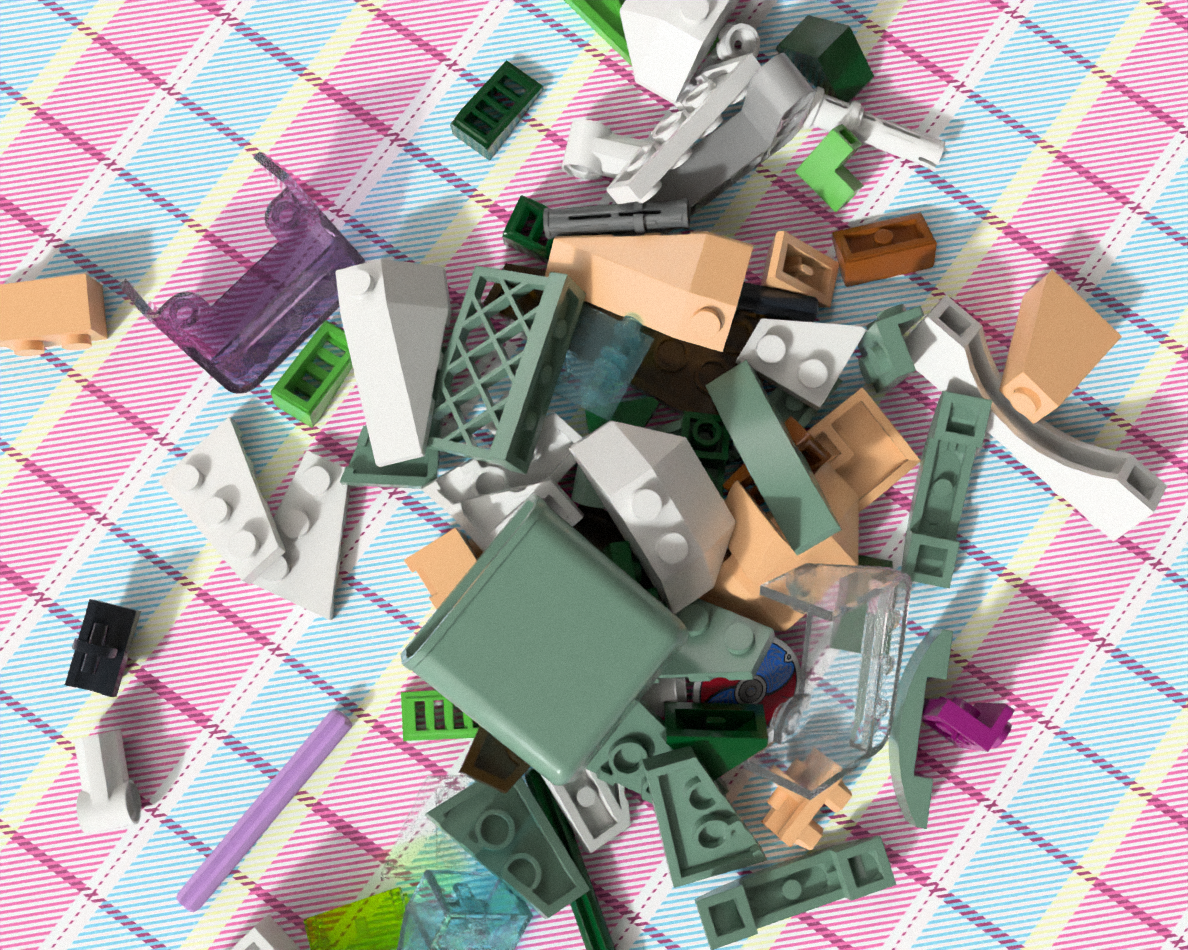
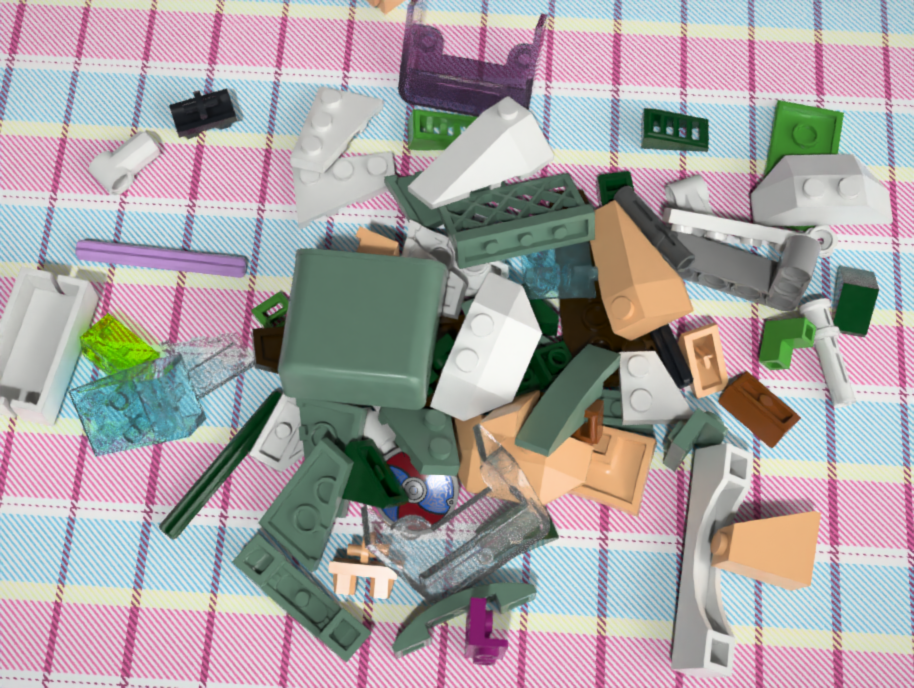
camera: 60 degrees right, 15 degrees down
(513, 843) = (228, 401): sand green wing -> none
(942, 488) = (628, 536): sand green slope -> none

